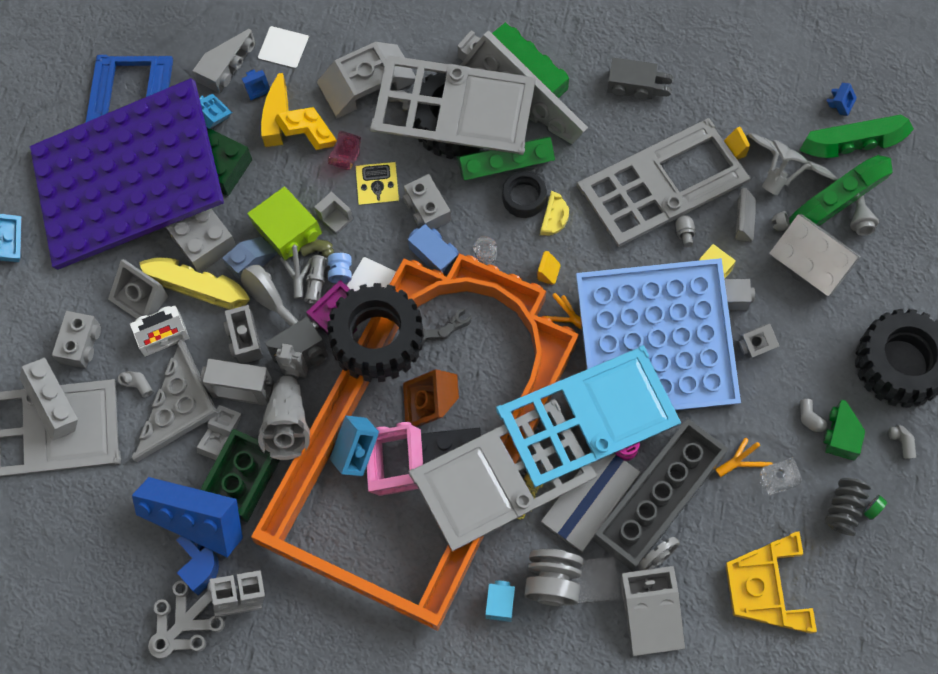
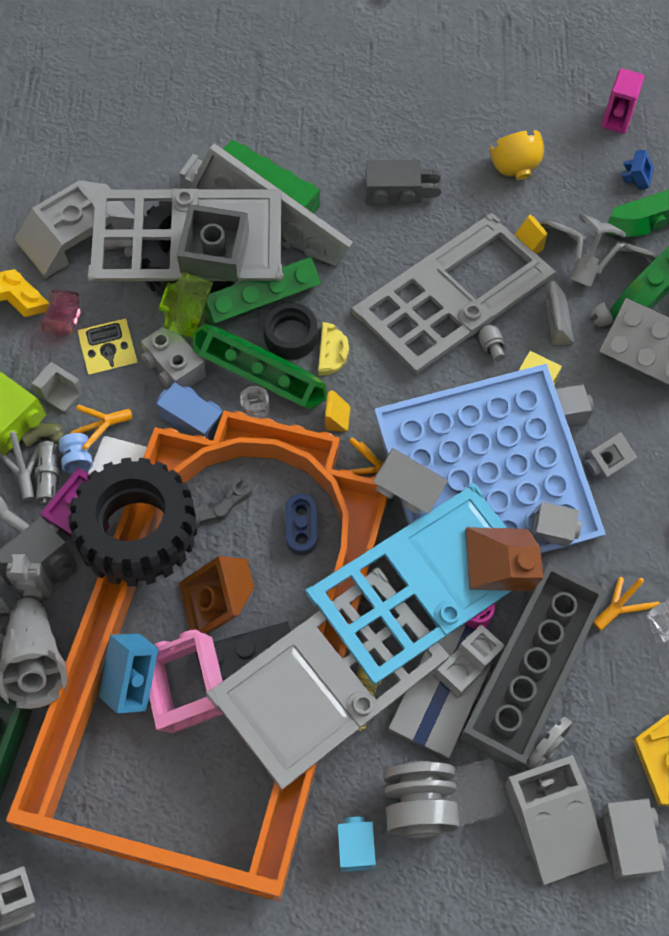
camera: 15 degrees left, 5 degrees down
(365, 246) = (106, 421): none -> light orange plant
(442, 162) = (185, 303): none -> clear neon green brick
(473, 117) = (213, 242): none -> dark grey brick
(493, 221) = (259, 366): none -> green brick
(503, 354) = (301, 526): none -> dark blue plate
(592, 336) = (409, 481): none -> light grey brick
(612, 481) = (469, 660): none -> light grey slope
(652, 409) = (502, 559): none -> dark orange slope
(701, 389) = (555, 524): none -> light grey brick
(707, 635) = (633, 839): none -> light grey brick
(741, 71) = (518, 154): none -> yellow cylinder
(841, 35) = (622, 100): none -> dark pink brick

